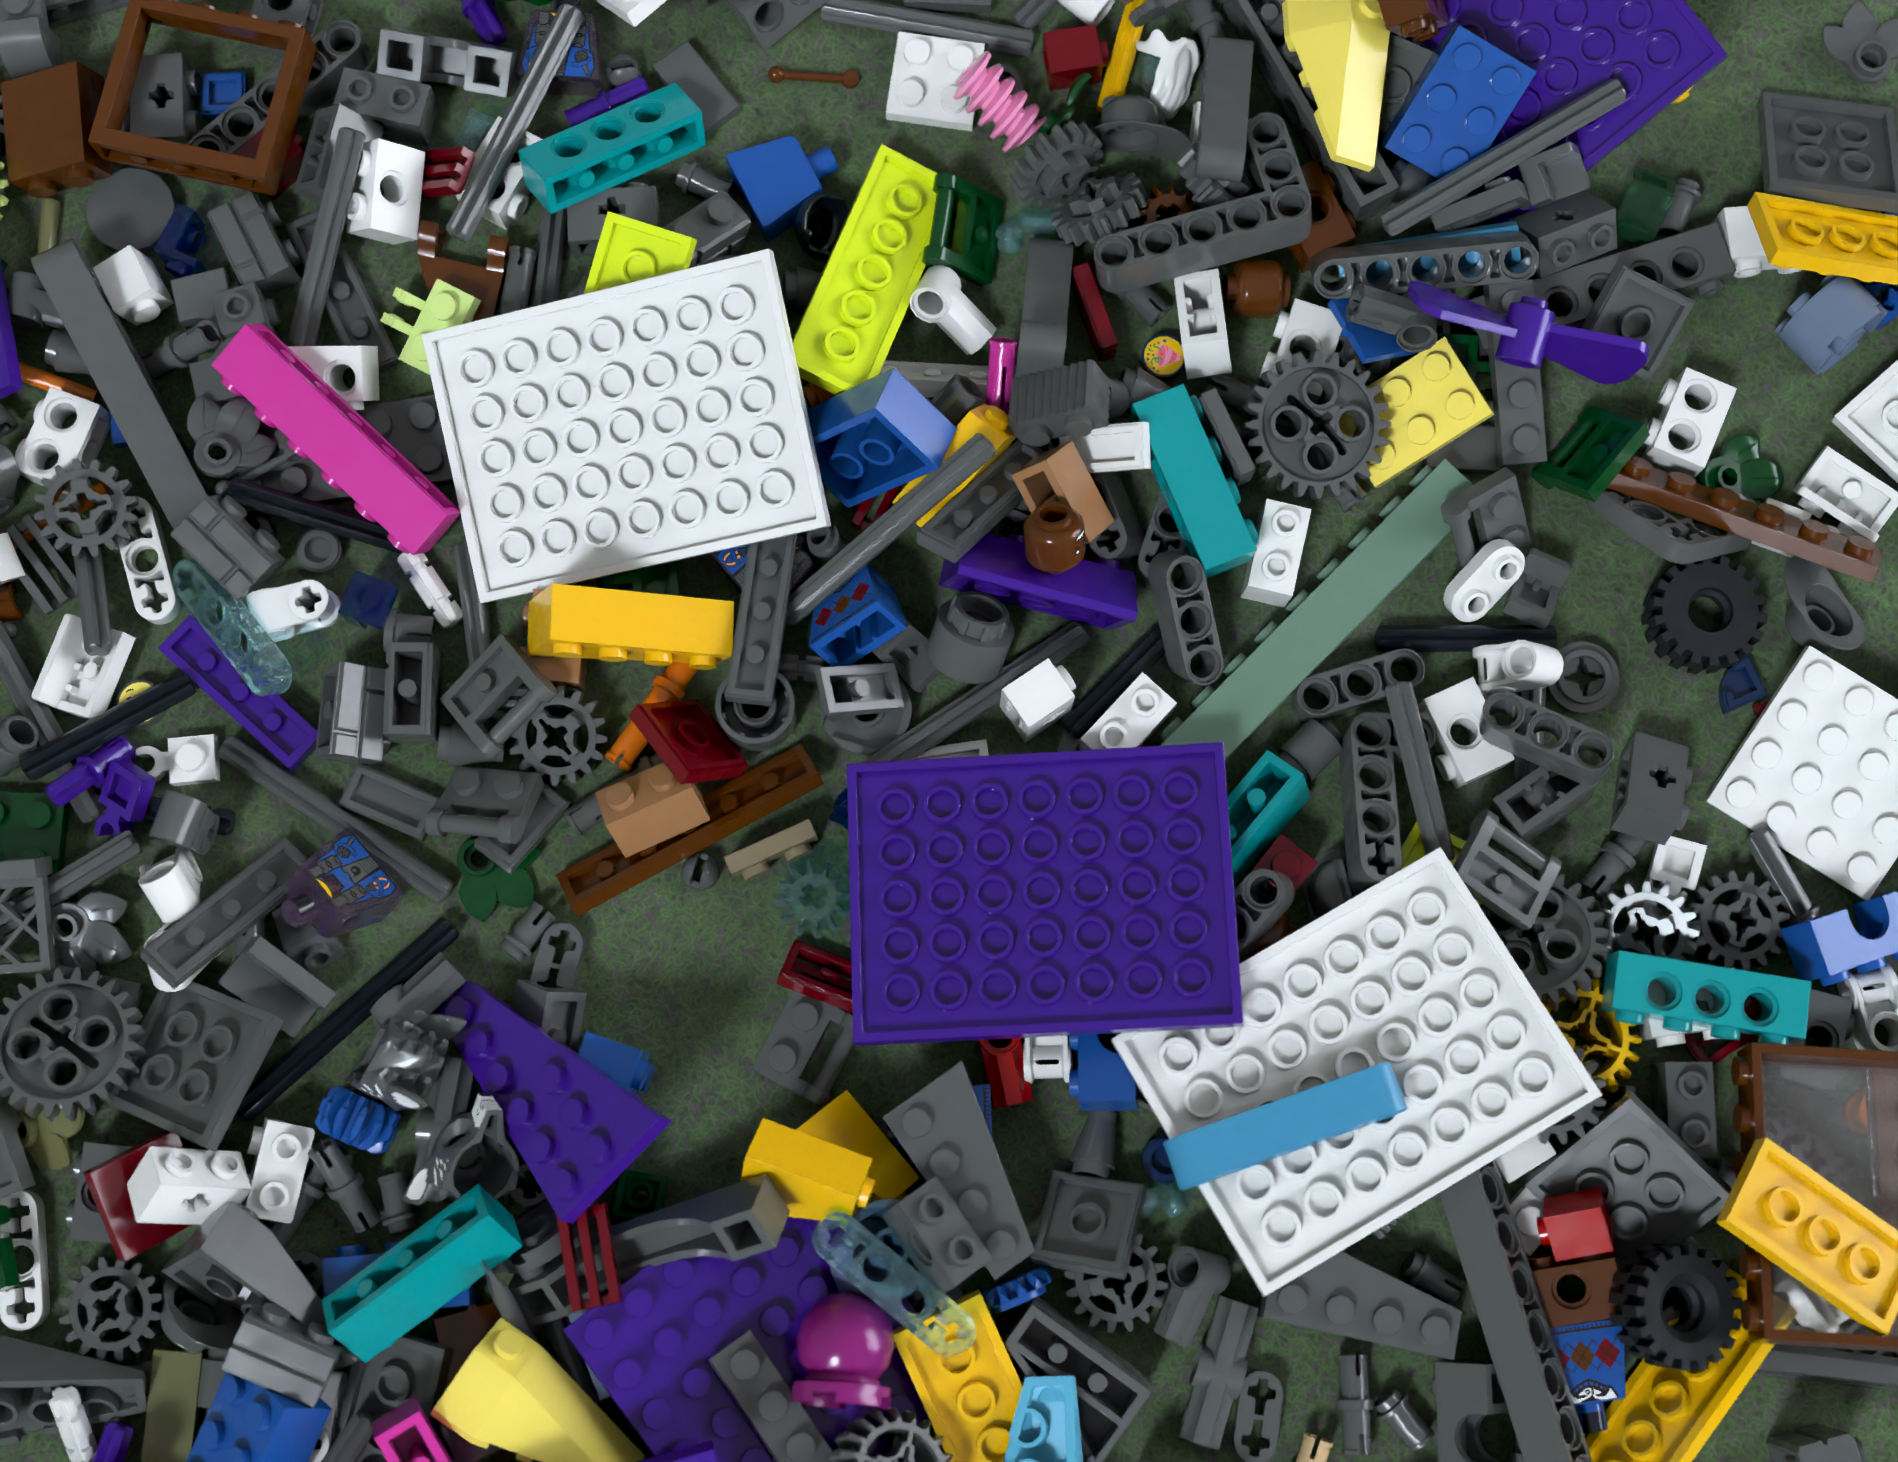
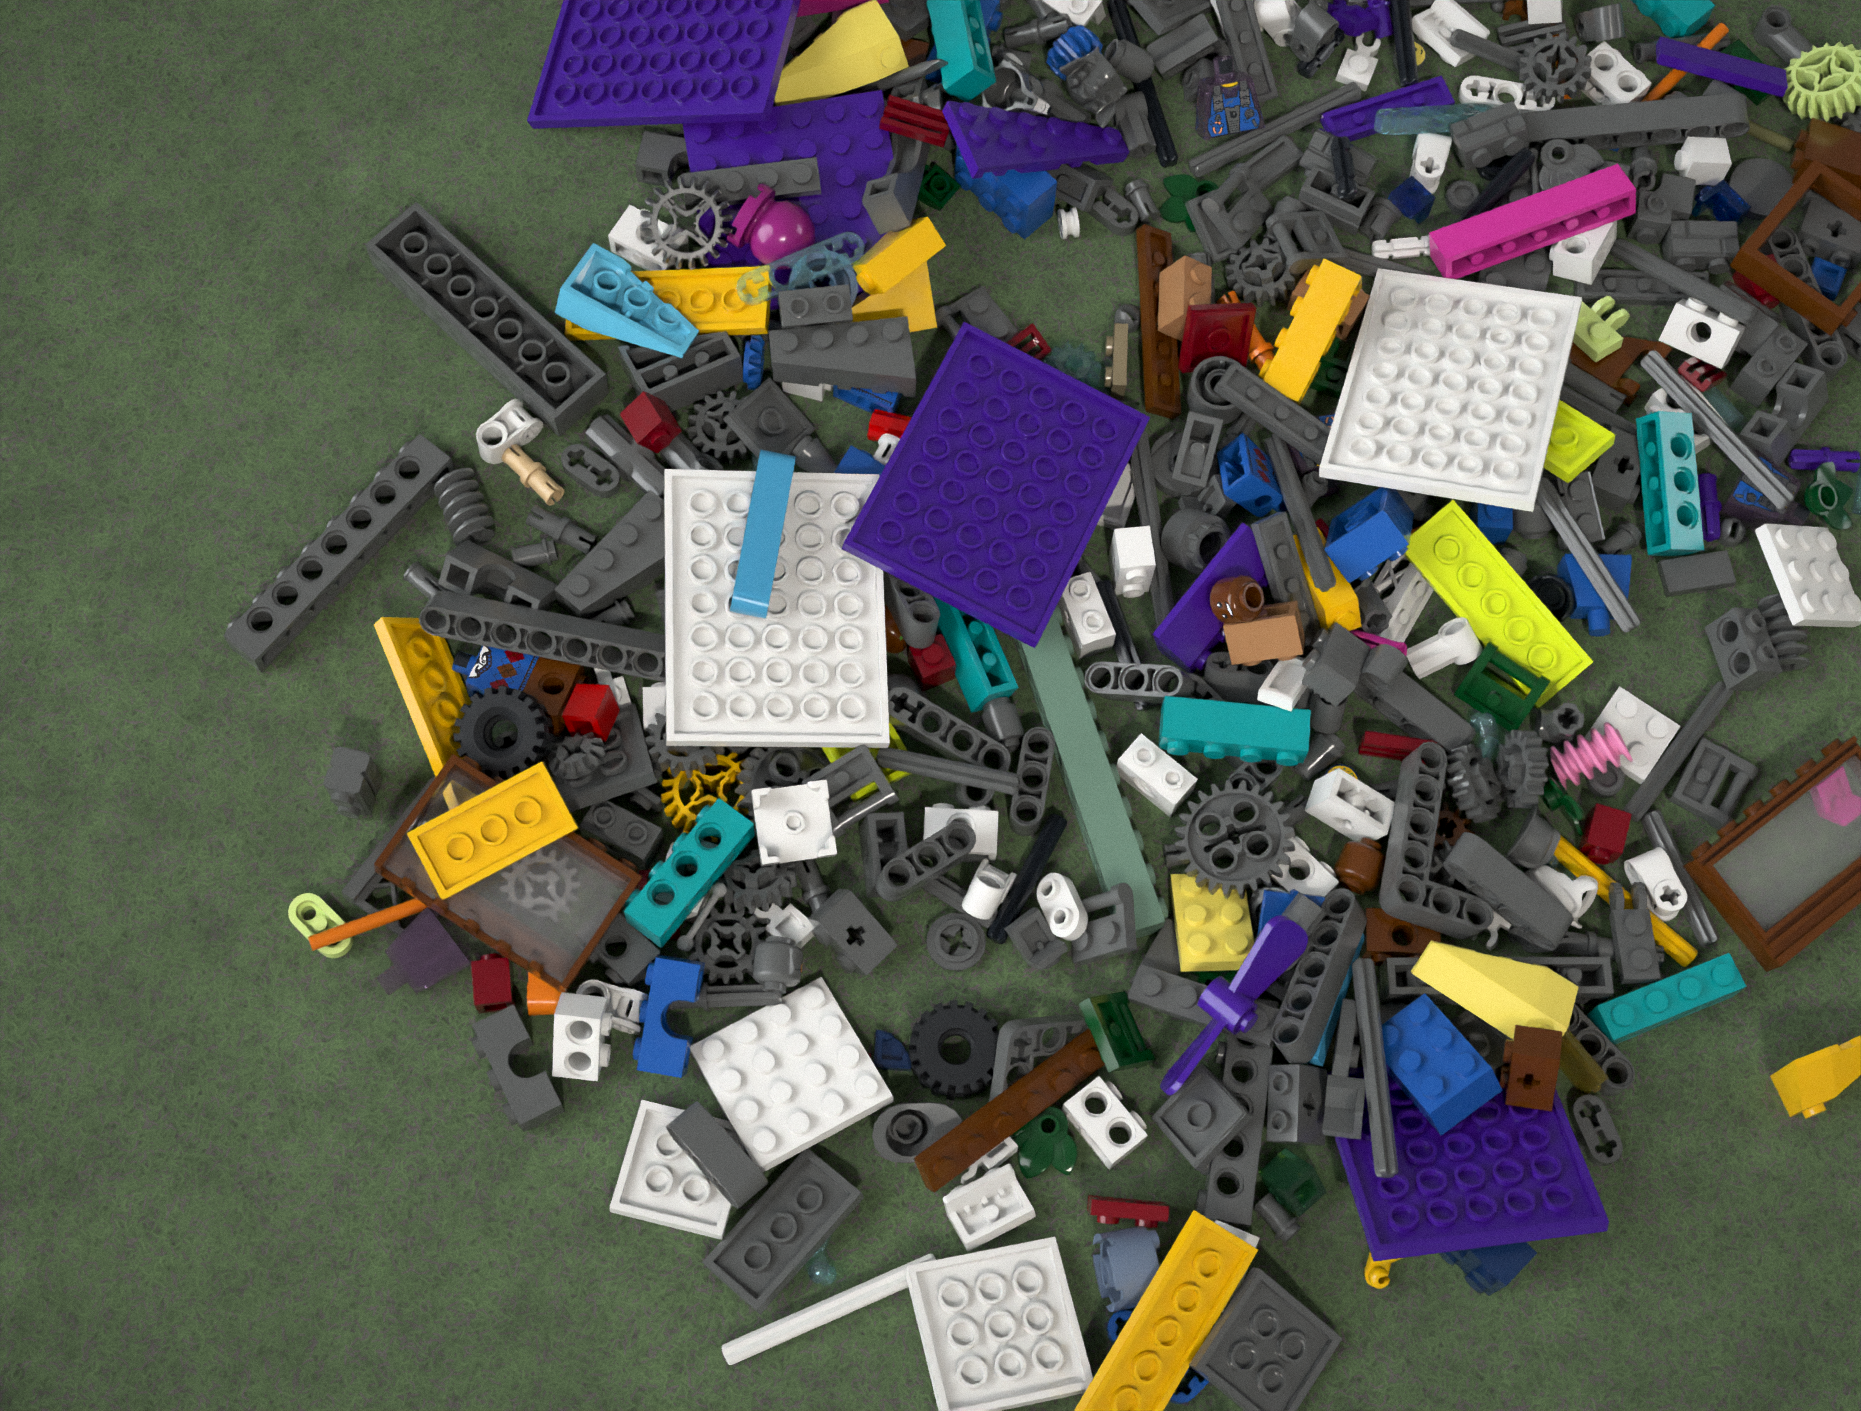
camera: 115 degrees right, 10 degrees down
(340, 1040) = (1130, 60): none -> dark grey brick
(377, 691) = (1344, 168): none -> black axle
(607, 1006) = (1068, 223): none -> white bush
(768, 187) = (1587, 556): none -> axle
(849, 78) = (1659, 679): reddish brown hinge -> none
(976, 147) = (1559, 723): none -> dark grey piece
(1176, 1367) = (650, 422): none -> dark red brick
(1220, 426) = (1256, 768): dark grey tile -> none
(1589, 908) = (793, 823): none -> white panel
(1664, 1195) = (578, 764): none -> dark grey gear
(1741, 845) = (777, 964): none -> dark grey head
(1766, 964) = (685, 941): none -> light grey hinge
(1768, 354) = (1111, 1209): none -> dark red plate

